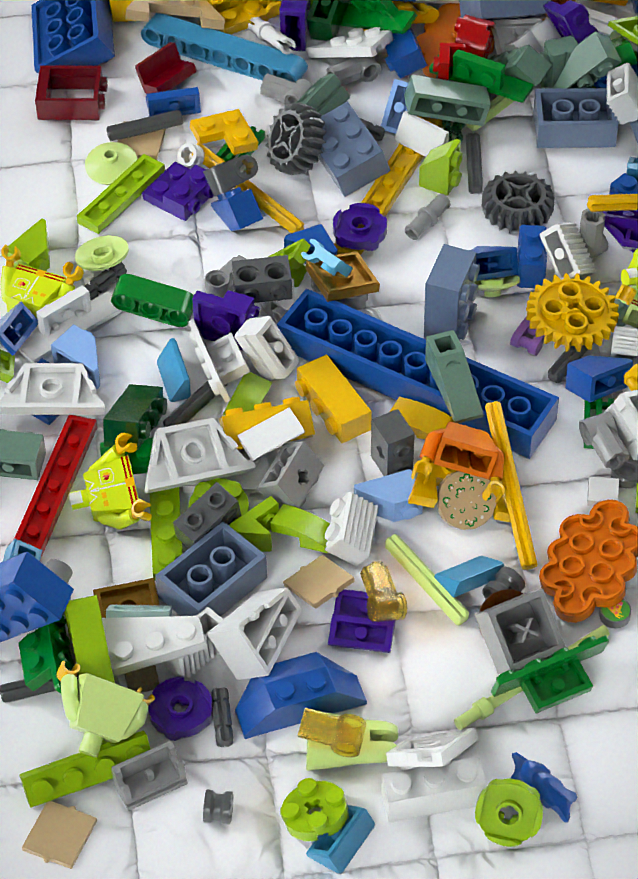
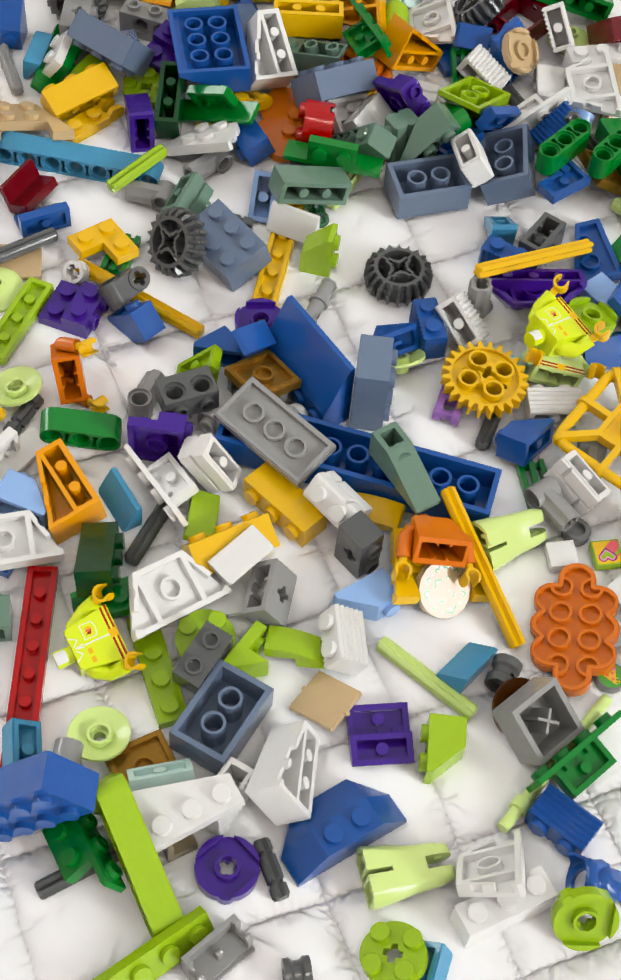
camera: 20 degrees left, 5 degrees up
(95, 570) = (100, 723): none -> yellowish green dish
(100, 708) = (155, 897): yellowish green torso -> none
(121, 354) = (66, 492): none -> light orange wedge
(156, 246) = (70, 375): none -> orange torso
(267, 33) = (117, 138): white pin -> none
(276, 63) = (136, 168): none -> lime axle
(330, 262) = (252, 366): medium azure plate -> none
(336, 326) = (274, 432): none -> light grey tile
(341, 237) = (254, 338): none -> blue slope
(341, 733) = (401, 869): clear yellow piece -> none
(379, 395) = (335, 498): none -> white brick
(383, 600) = (398, 713): clear yellow piece -> none
(396, 268) = (316, 360): none -> blue slope
(422, 640) = (444, 744): none -> lime slope
(445, 60) = (299, 145): red bracket -> none
(474, 163) = (346, 245): dark grey axle -> none
(519, 727) = (562, 821): none -> blue brick
(548, 463) = (509, 535): none -> yellowish green piece

